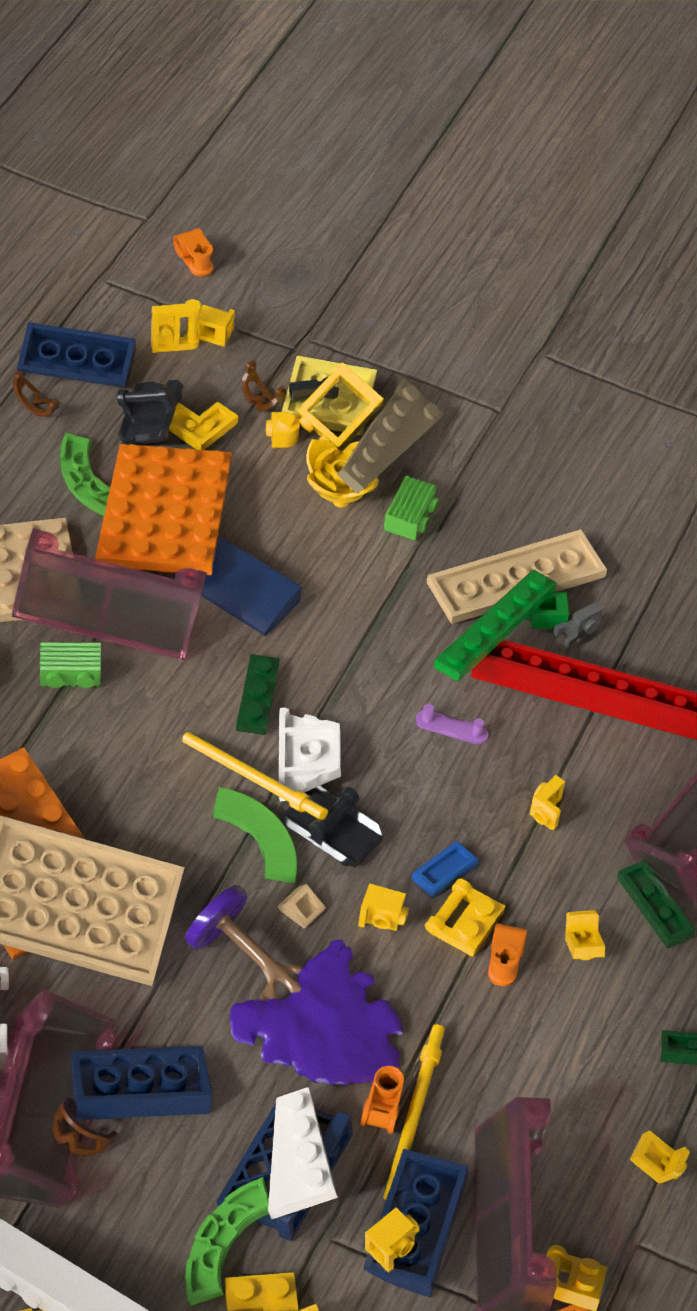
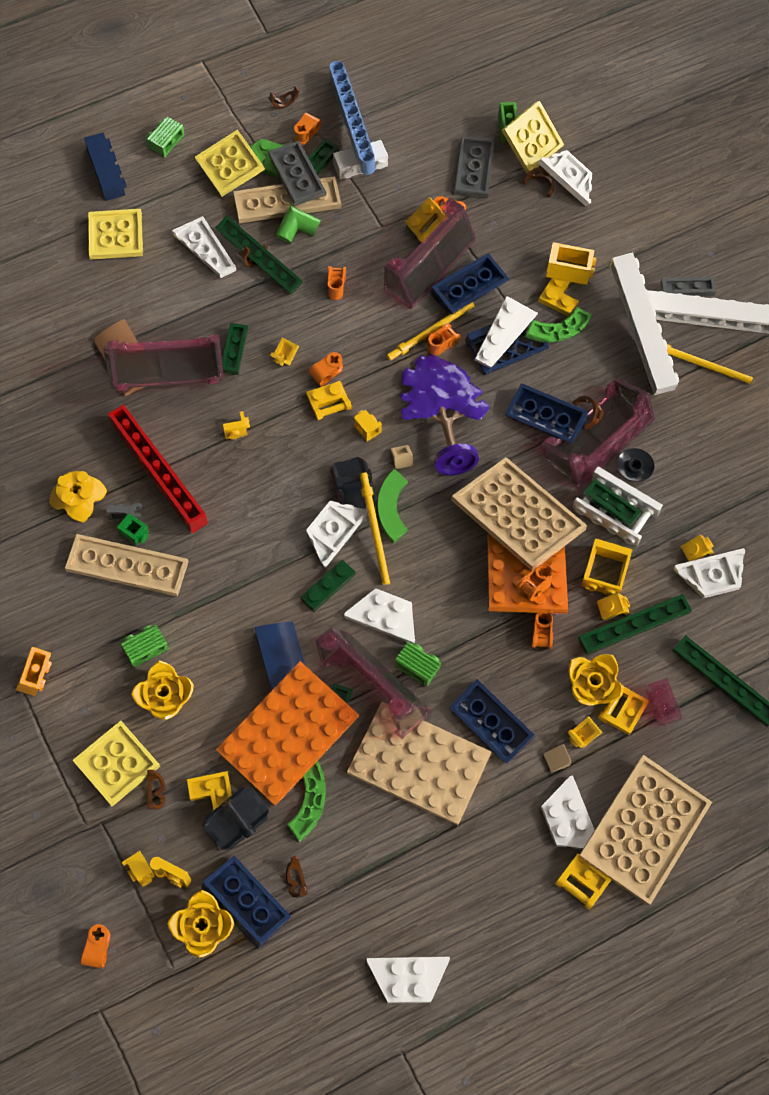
camera: 140 degrees left, 15 degrees up
(103, 309) = (200, 908): none -> yellow brick
(157, 702) = (384, 614): none -> white wing
(283, 429) = (167, 754): yellow plate -> none
(302, 390) = (129, 764): black bar -> none
(358, 387) = (116, 745): yellow window -> none
(391, 1238) = (492, 273): yellow brick -> none
(395, 428) = (108, 697): dark tan wing -> none
(444, 869) = (316, 430): blue tile -> none
(451, 727) = (242, 504): medium lavender piece -> none
(495, 625) = (178, 522): green plate -> none
(502, 415) = (33, 671): none -> light orange brick
(617, 1097) = (336, 282): none -> orange piece
(654, 612) = (81, 504): none -> yellow brick
(659, 1159) = (342, 243): yellow bracket -> none

